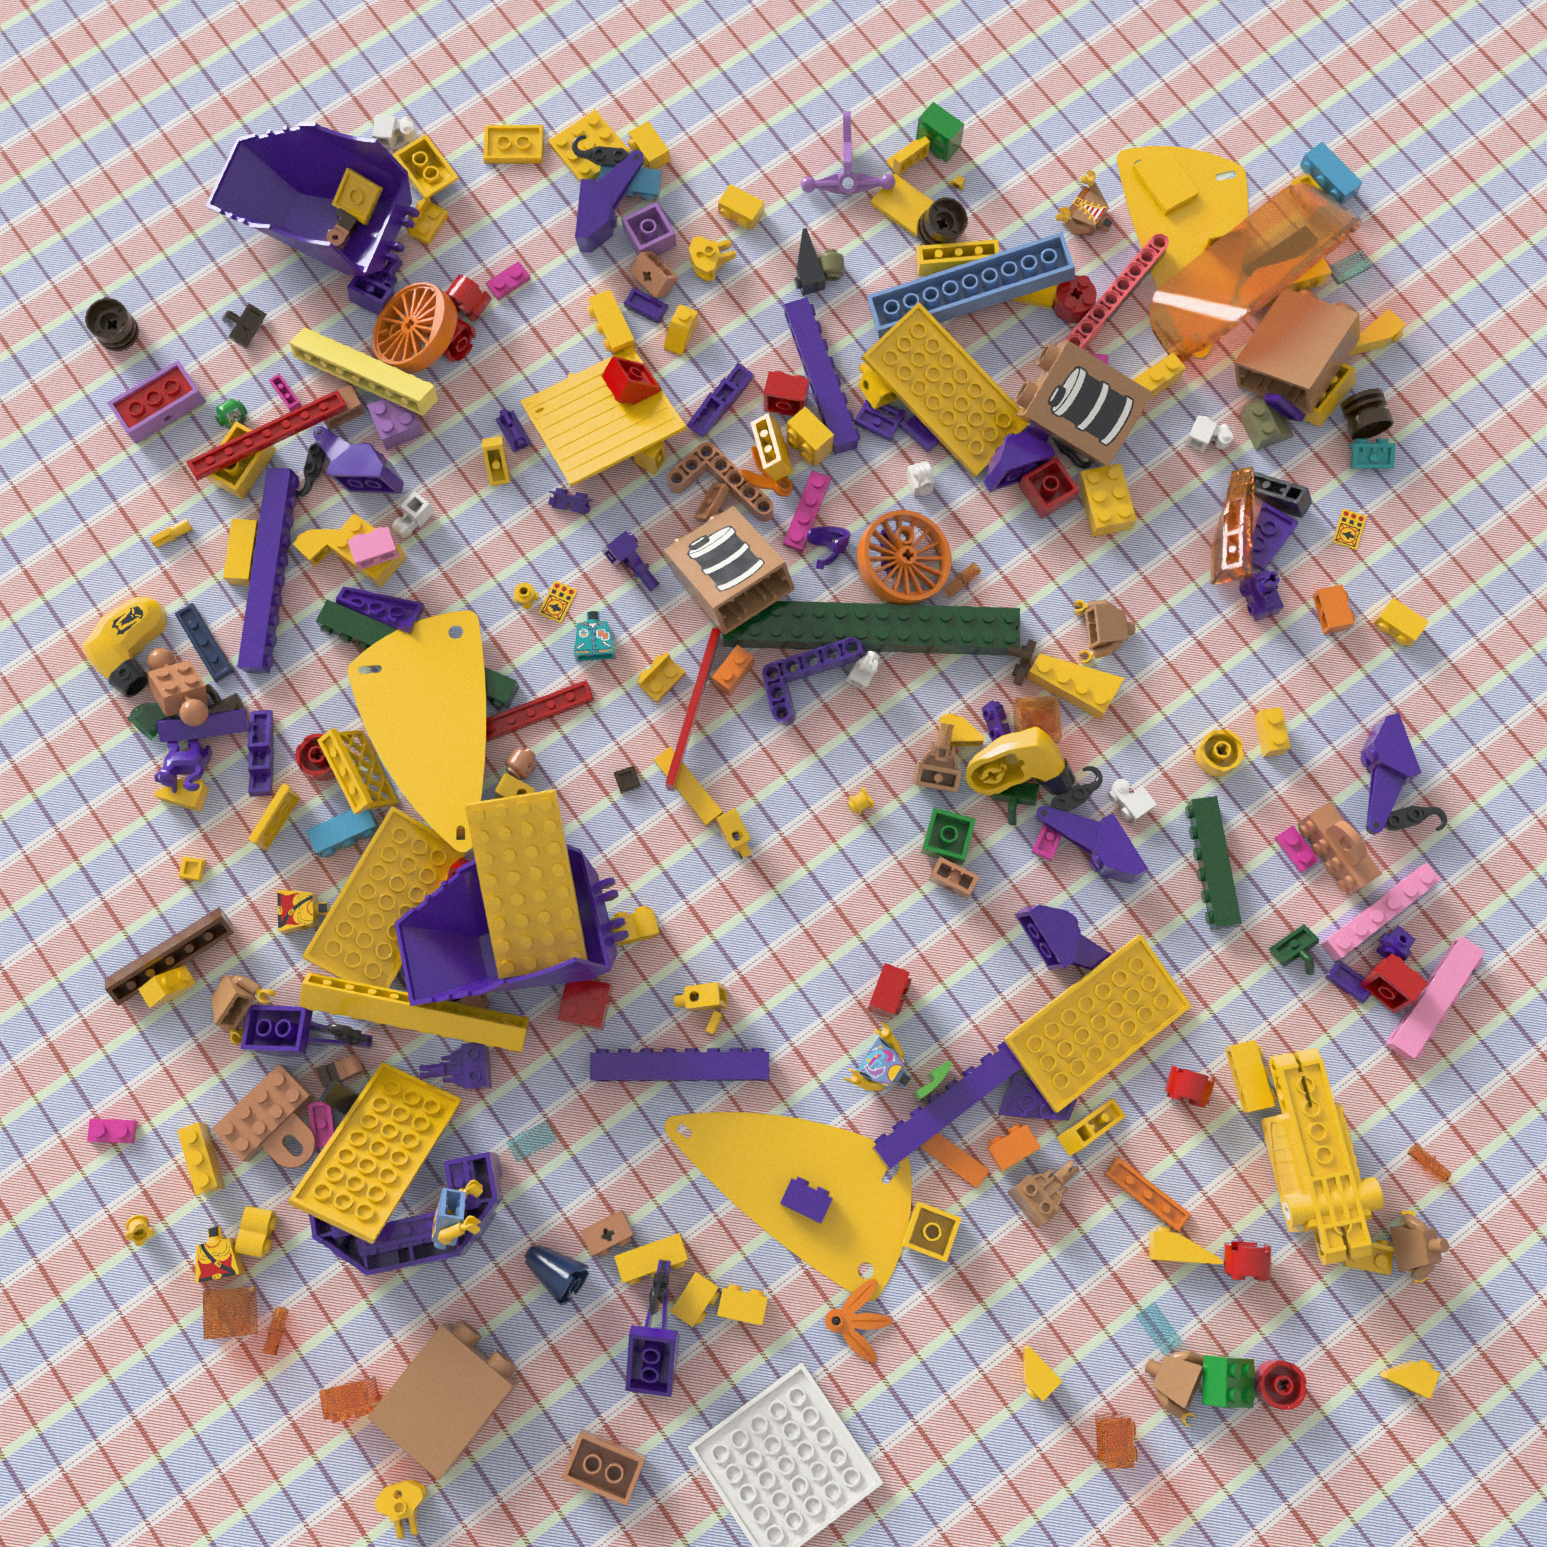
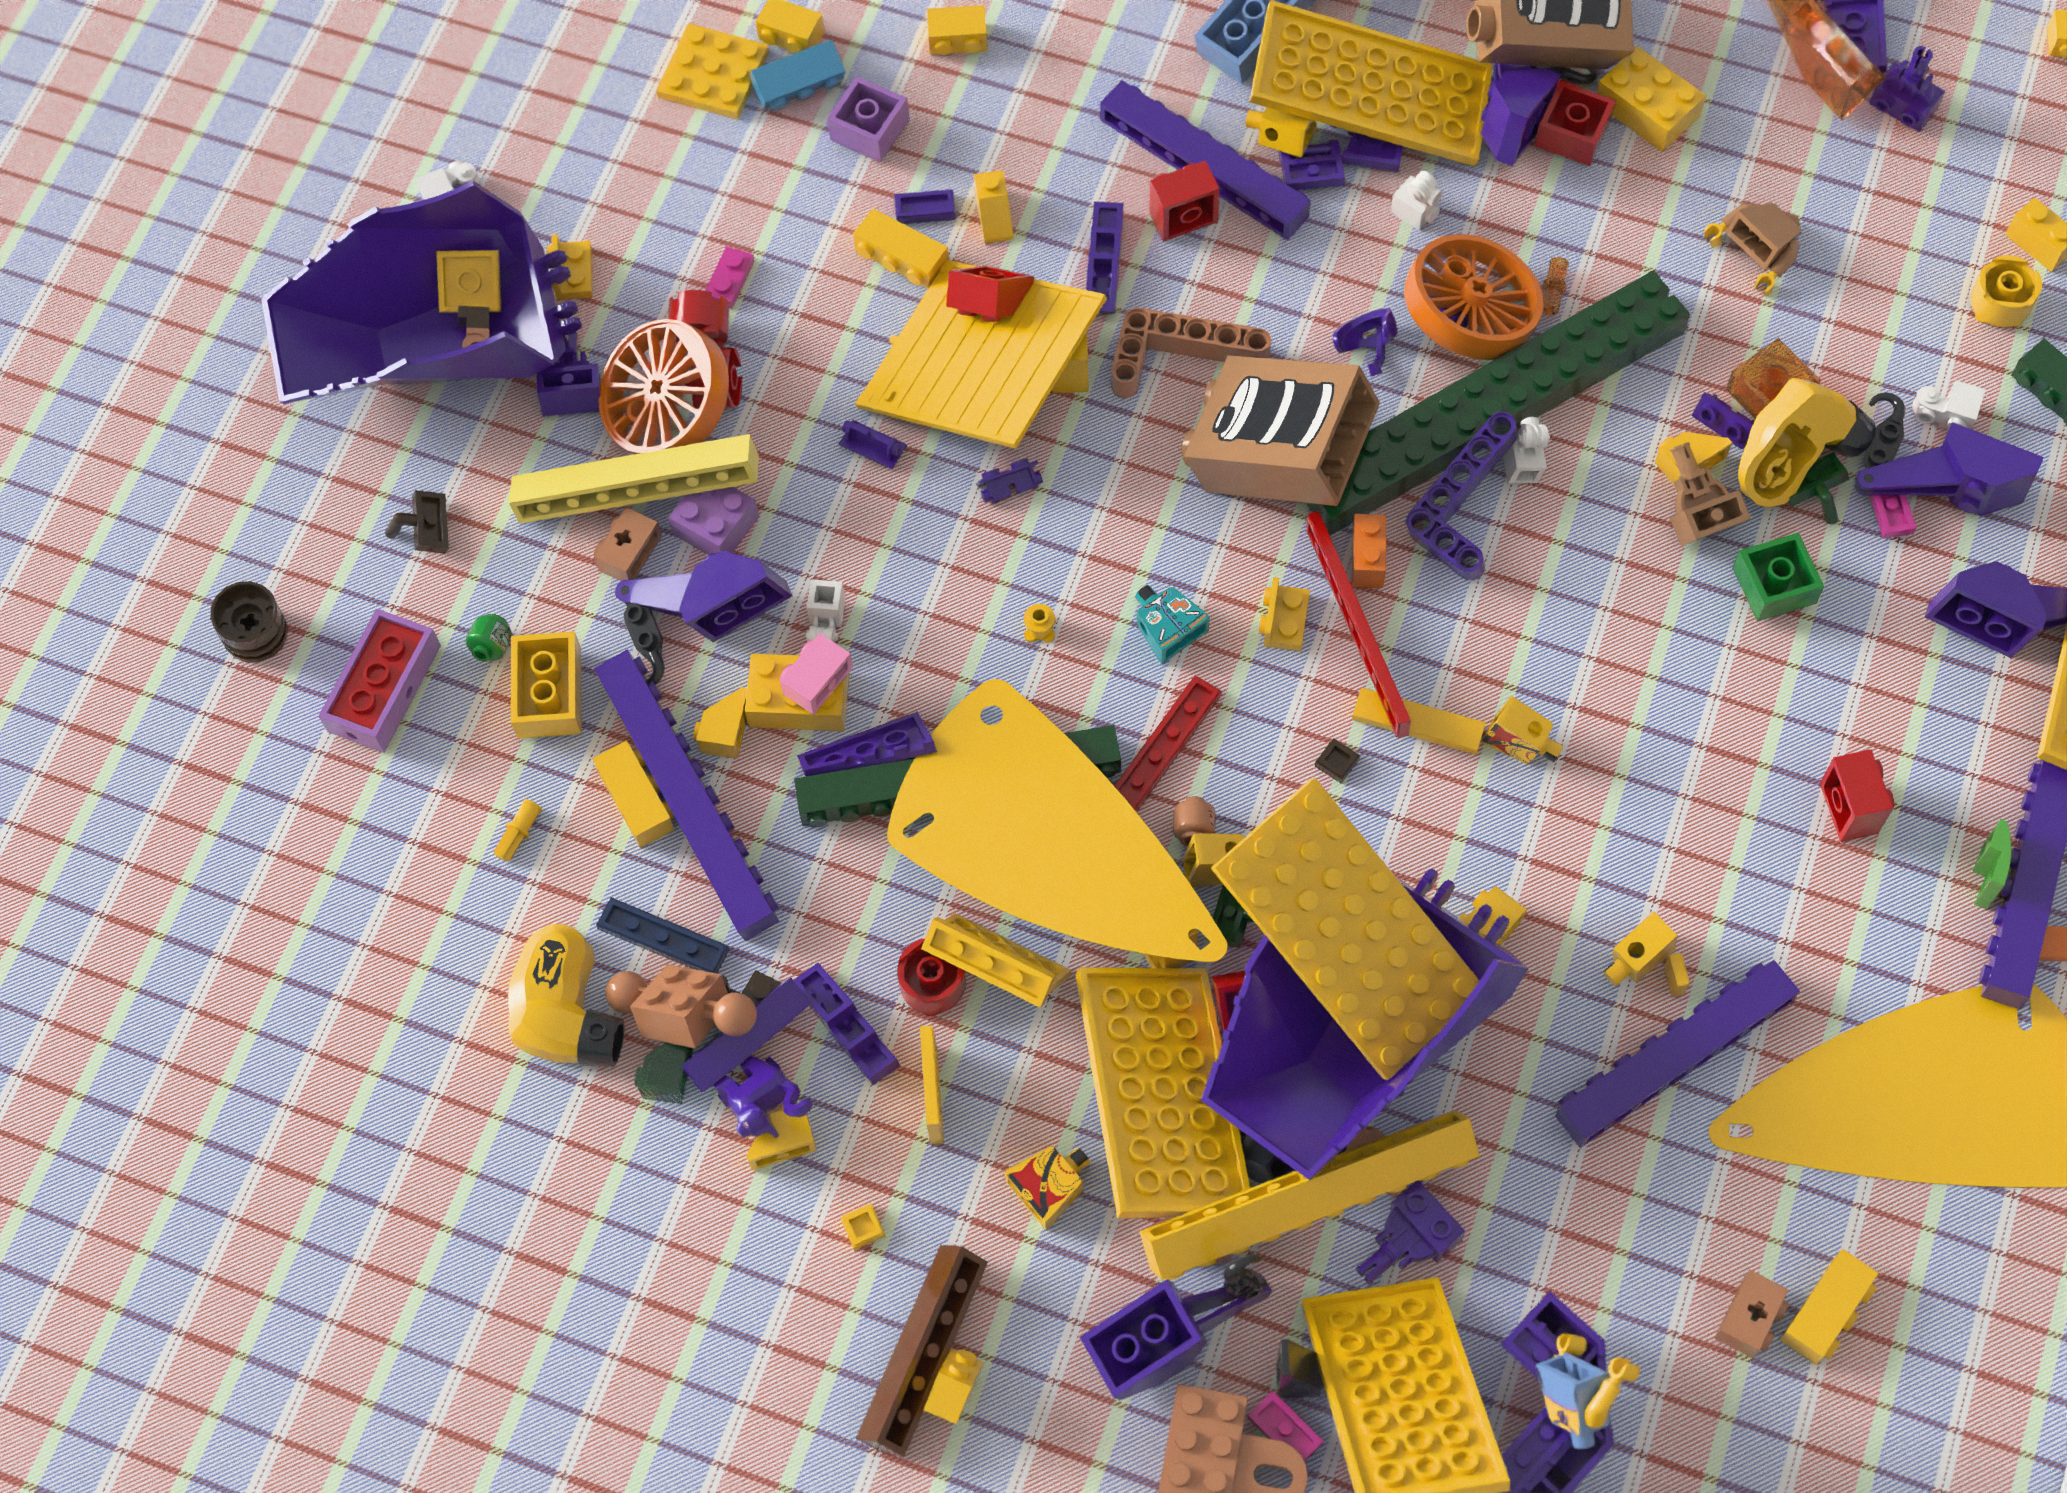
camera: 30 degrees left, 10 degrees down
(232, 1002) = (1054, 1345): medium nougat torso -> none
(267, 435) = (567, 628): red tile -> none
(285, 392) = (541, 573): dark pink piece -> none
(340, 1070) = (1256, 1346): leg -> none
(342, 832) = (1029, 1050): dark azure brick -> none
(425, 167) = (540, 199): yellow slope -> none
(495, 460) = (879, 488): yellow slope -> none
(513, 144) = (613, 120): yellow tile -> none
(531, 1140) = (1566, 1267): clear light blue tile -> none
(556, 1272) = (1727, 1403): dark blue cone -> none
(557, 601) = (1083, 609): yellow sticker -> none
(585, 1004) = (1503, 1055): red brick -> none
(600, 199) = (782, 111): dark purple slope -> none
(623, 550) = (1131, 492): dark purple brick -> none
(653, 274) = (926, 157): nougat brick -> none
(653, 1350) = (1931, 1410): dark purple slope -> none
(695, 1299) = (1922, 1320): yellow brick -> none
(706, 256) = (963, 105): yellow hinge -> none
(712, 502) = (1187, 377): nougat plate -> none
(742, 1305) = (1984, 1286): yellow brick -> none
(771, 447) = (1215, 268): yellow brick -> none
(782, 487) = (1238, 306): orange plant -> none
(806, 1200) = (1957, 1107): dark purple brick -> none
(807, 511) = (1306, 315): dark pink plate -> none
(809, 272) = (1096, 53): black slope -> none
(809, 437) = (1250, 230): yellow brick -> none
(832, 264) = (1118, 31): olive head -> none
(860, 802) = (1642, 605): yellow brick -> none
(881, 1064) = (1913, 886): torso -> none
(953, 878) = (1823, 619): nougat brick -> none
(1025, 654) = (1700, 323): dark brown plate -> none
(1076, 684) = (1797, 315): yellow wedge -> none
(1333, 609) = (1997, 64): orange brick -> none

